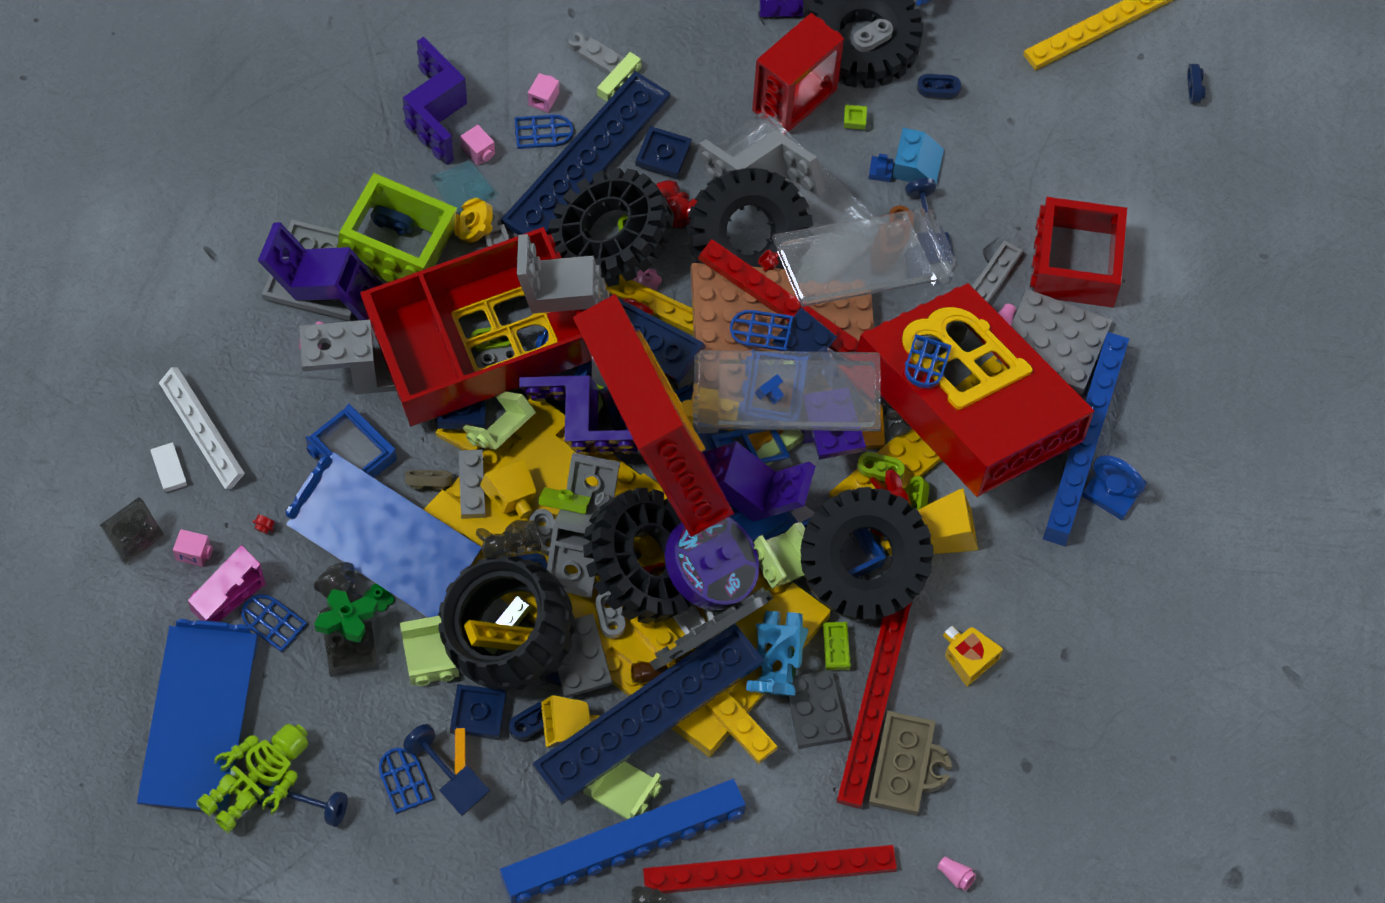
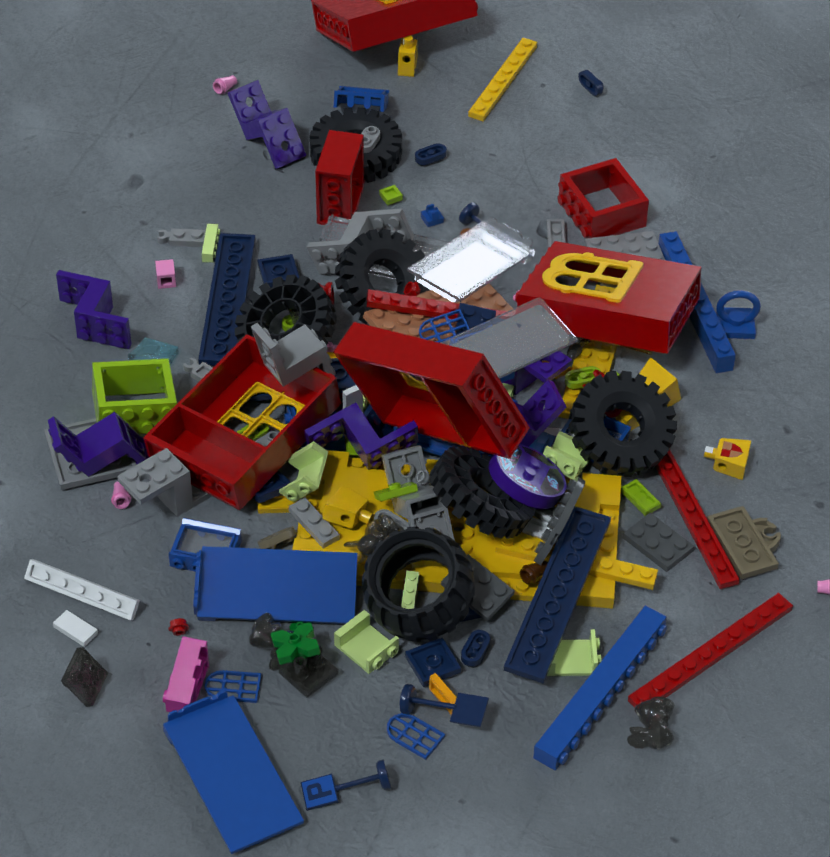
camera: 30 degrees left, 15 degrees down
(192, 548) = (138, 667): bright pink brick -> none
(286, 746) = (309, 776): lime piece -> none
(392, 219) = (121, 393): dark blue plate -> none
(474, 220) = (189, 367): yellow plate -> none
(477, 145) = (144, 324): bright pink brick -> none
(496, 635) = (415, 598): yellow plate -> none
(535, 127) = (194, 286): blue window -> none
(563, 718) = (499, 631): yellow torso -> none
(609, 617) = (481, 551): light grey plate -> none
(771, 390) = (490, 348): blue tile -> none
(784, 641) = (608, 503): dark azure hips -> none
(917, 157) = (449, 198): dark azure slope -> none
(935, 358) = (566, 293): blue window -> none

